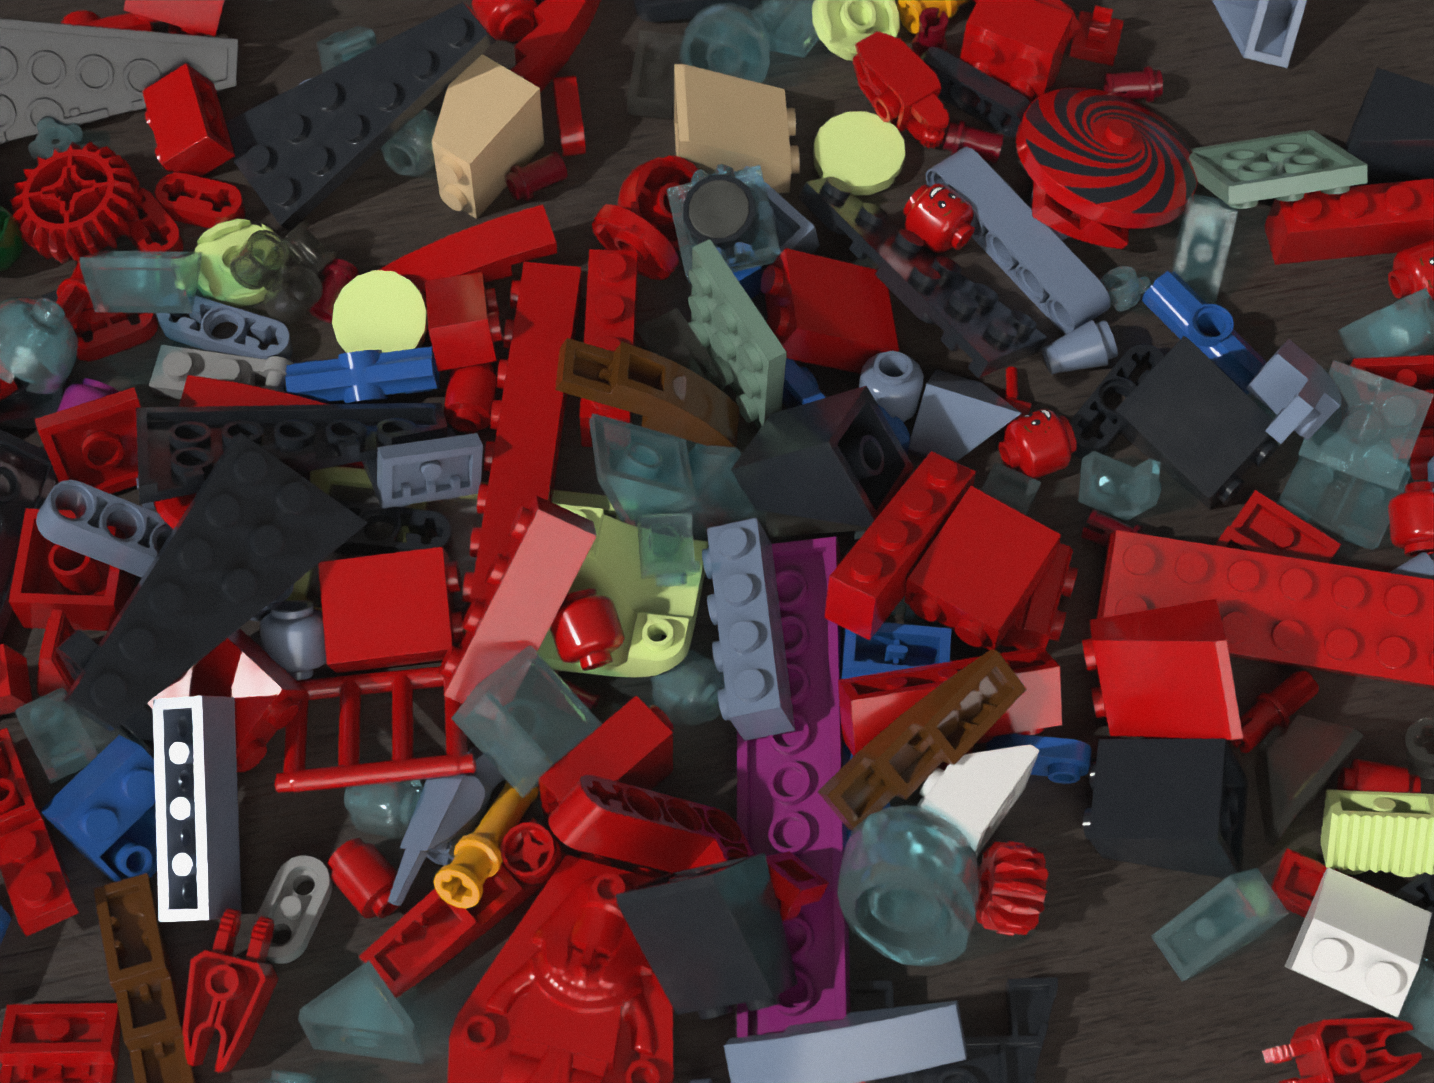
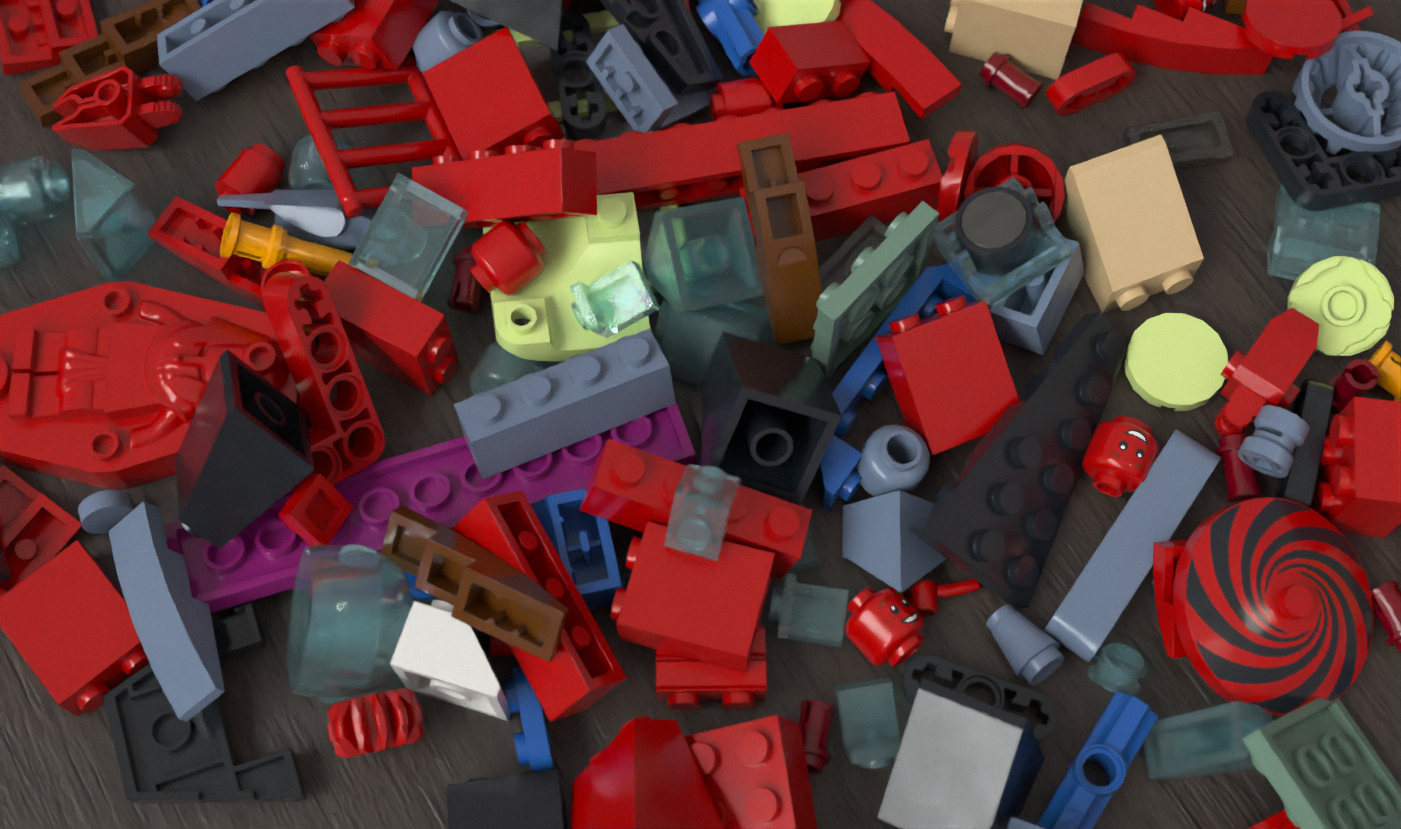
camera: 75 degrees right, 5 degrees up
(295, 911) = (211, 133): light grey plate -> none
(728, 41) = (1233, 192): clear light blue cylinder -> none
(926, 519) = (701, 511): none -> clear light blue bracket
(972, 100) = (1273, 441): none -> sand blue wheel

